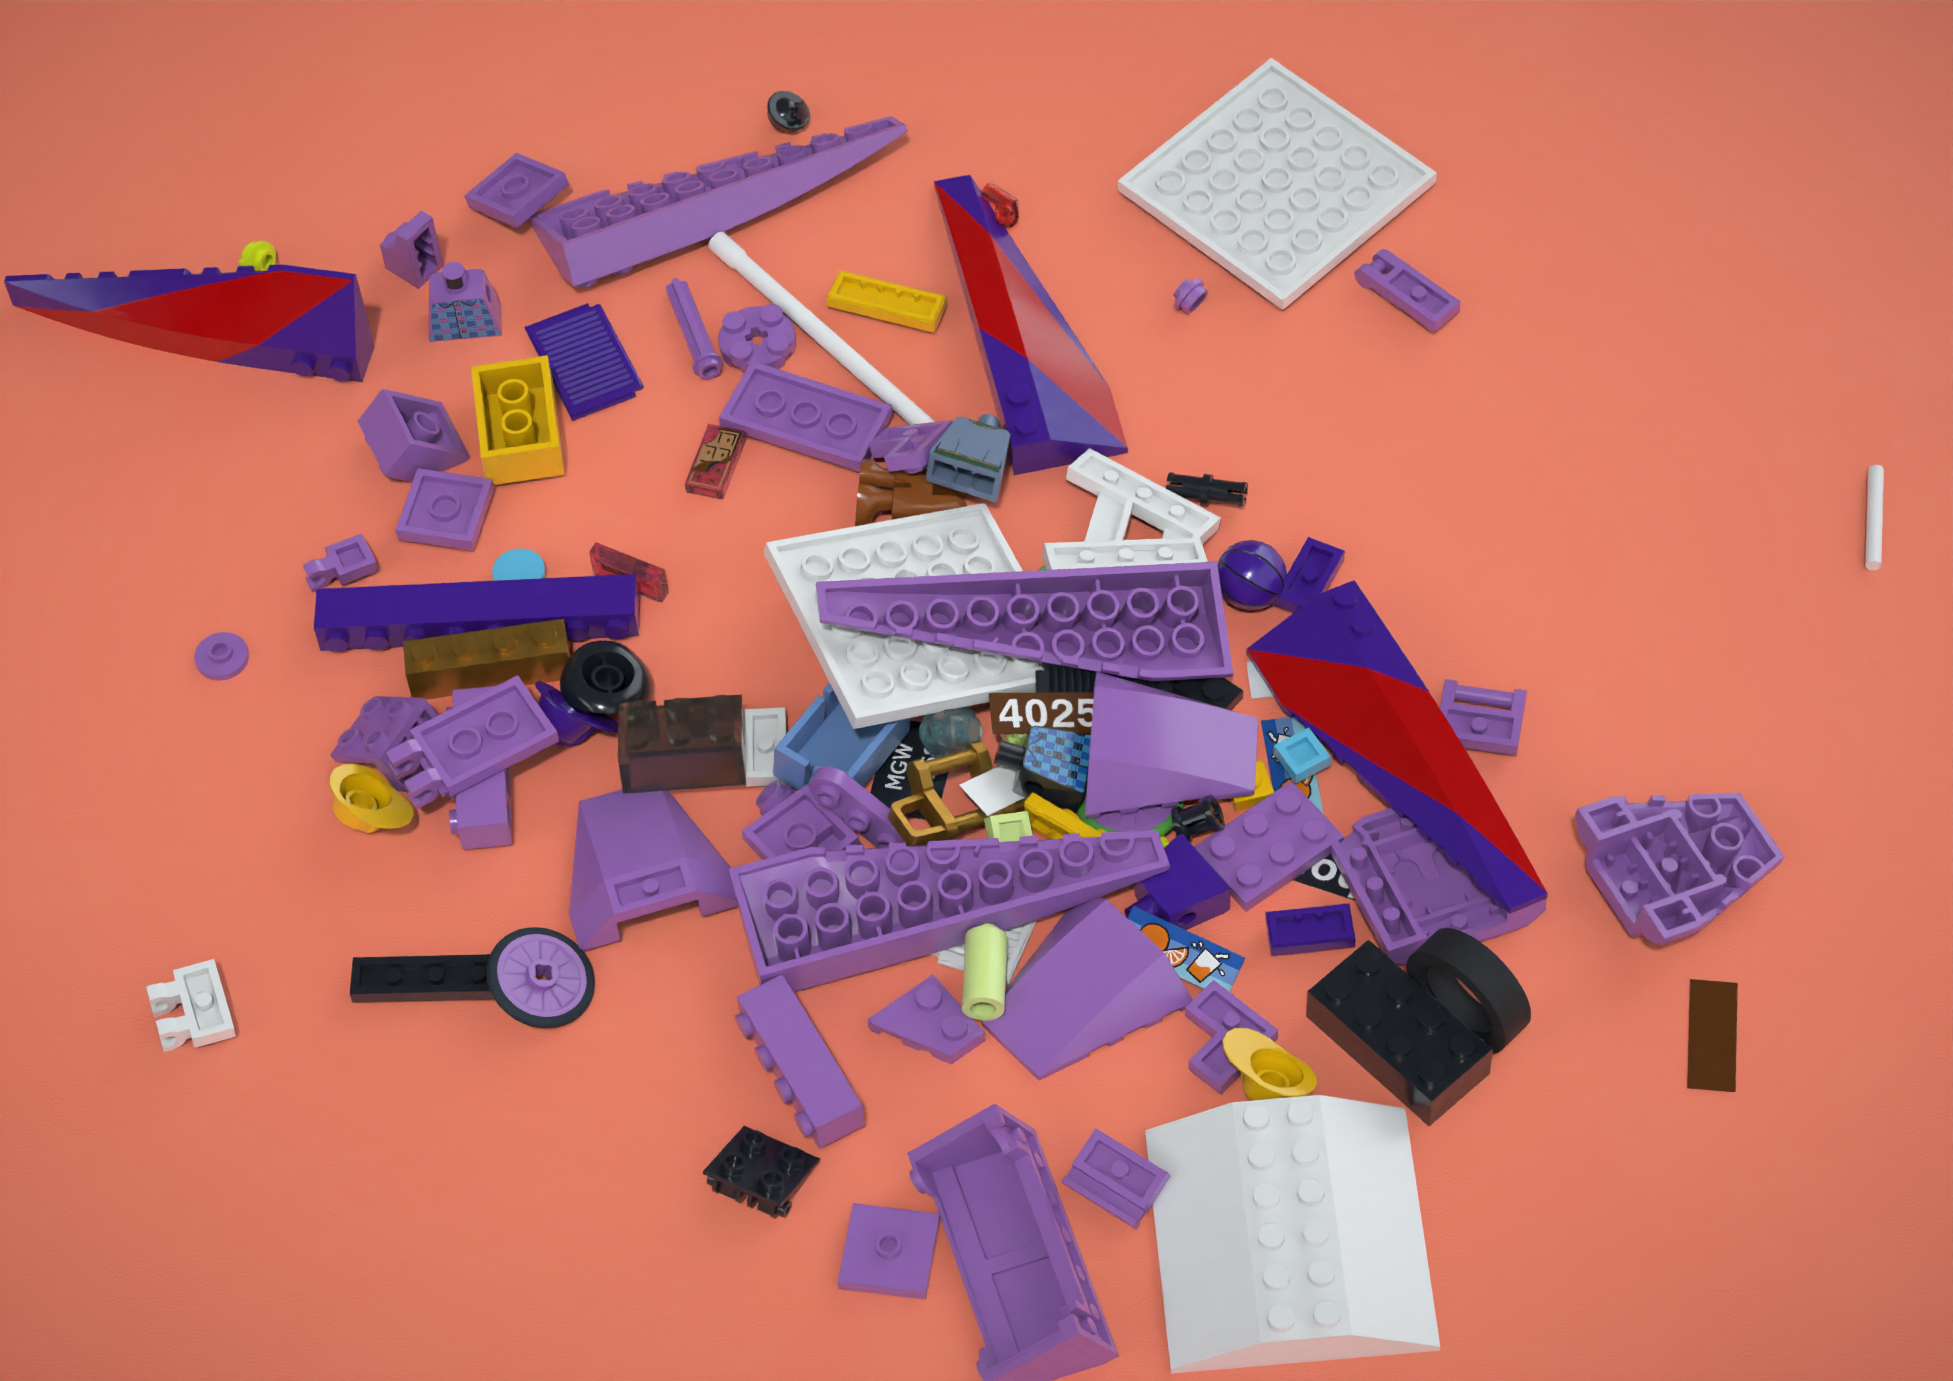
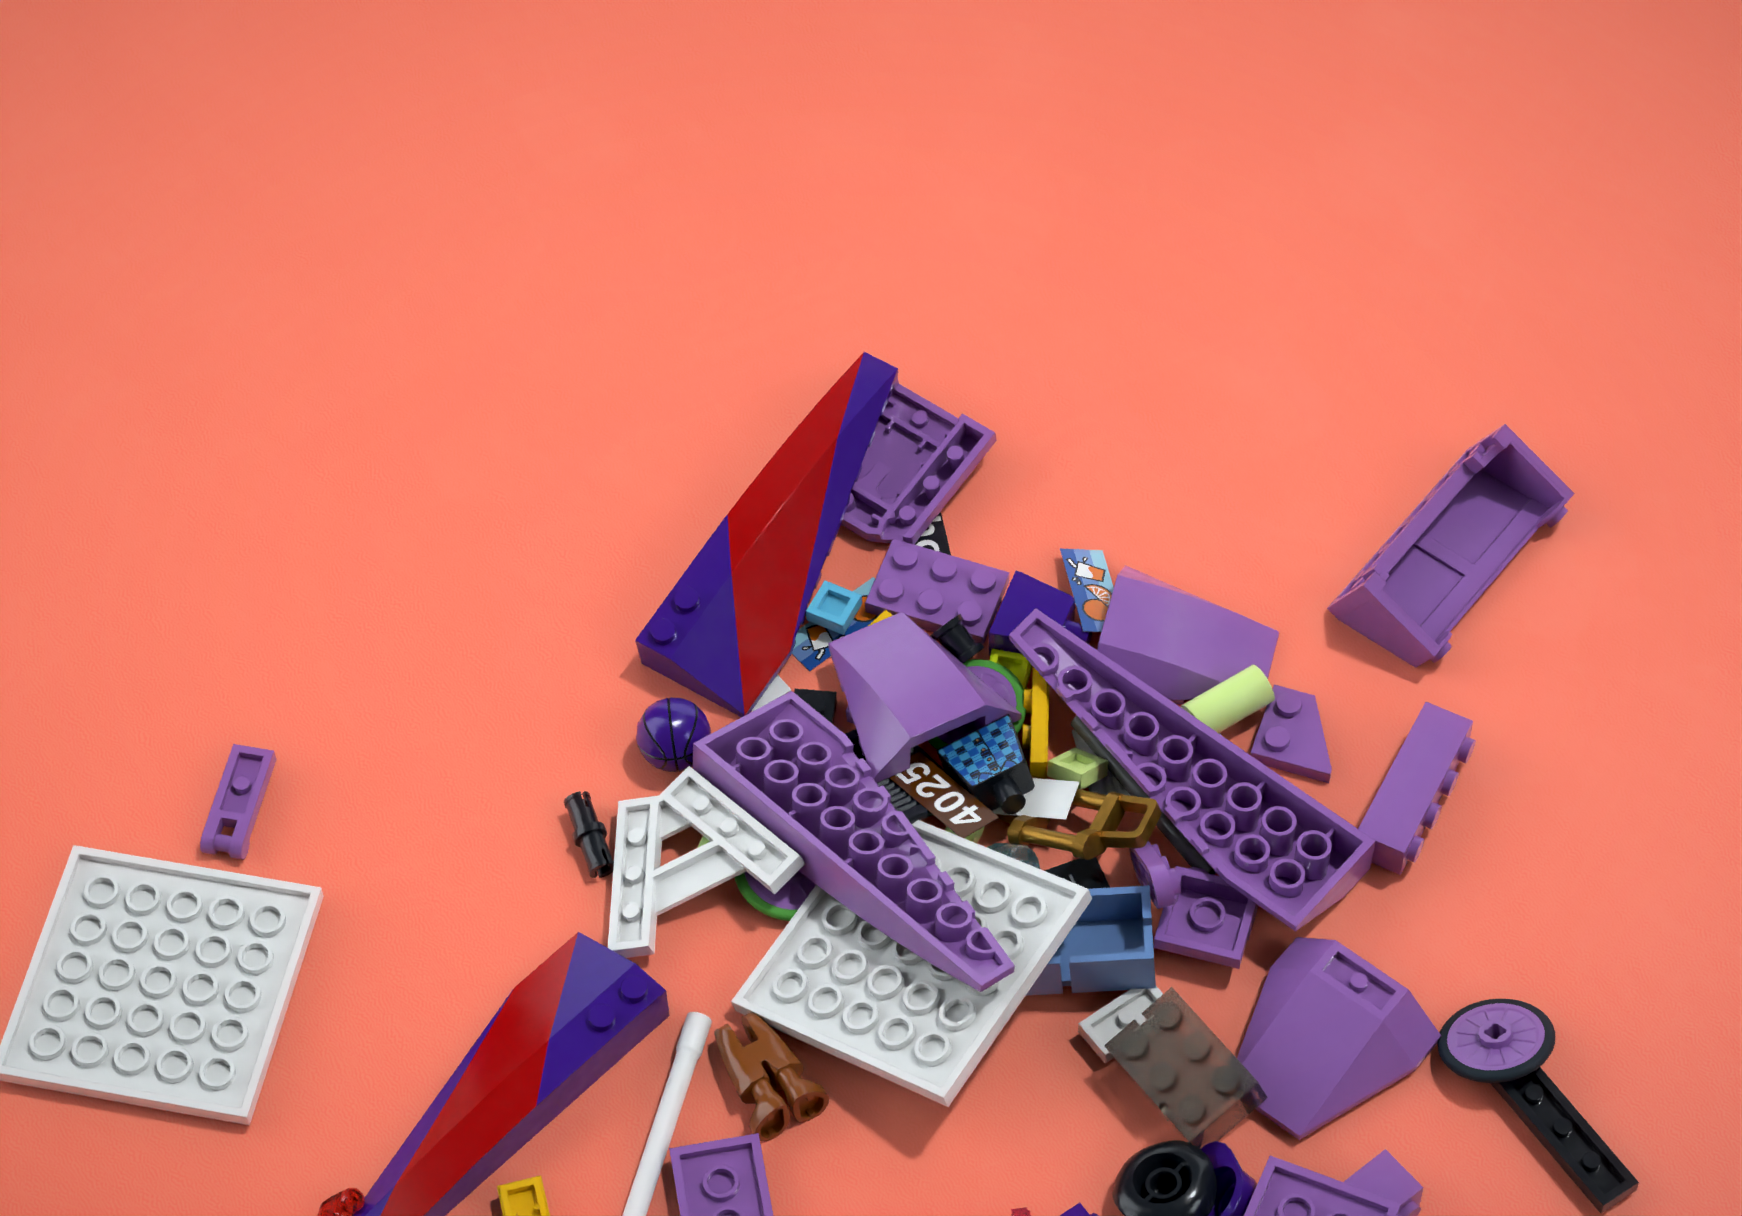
camera: 125 degrees left, 0 degrees up
(761, 1169) = (1524, 765): black hinge -> none
(773, 795) = (1176, 971): medium lavender plate -> none
(889, 1251) = (1513, 642): medium lavender plate -> none
(908, 445) = (703, 1084): medium lavender plate -> none
(970, 457) = (697, 1018): sand blue torso -> none
(1116, 1178) = (1328, 524): medium lavender plate -> none
(1190, 295) = (359, 974): medium lavender plate -> none
(1217, 1013) = (1141, 510): medium lavender plate -> none
(1267, 1067) = (1158, 460): yellow piece -> none
(1290, 1235) = (1285, 396): white slope -> none
(1310, 574) = (626, 701): dark purple plate -> none
(1310, 929) = (1000, 517): dark purple plate -> none
(1399, 1032) = (1053, 406): black brick -> none
(1457, 955) = (998, 352): black tyre -> none
(1482, 726) = (709, 500): medium lavender plate -> none
(1674, 862) = (763, 302): medium lavender wedge -> none
(1712, 1035) = (889, 233): reddish brown sticker -> none
(1874, 517) = (290, 347): white bar -> none

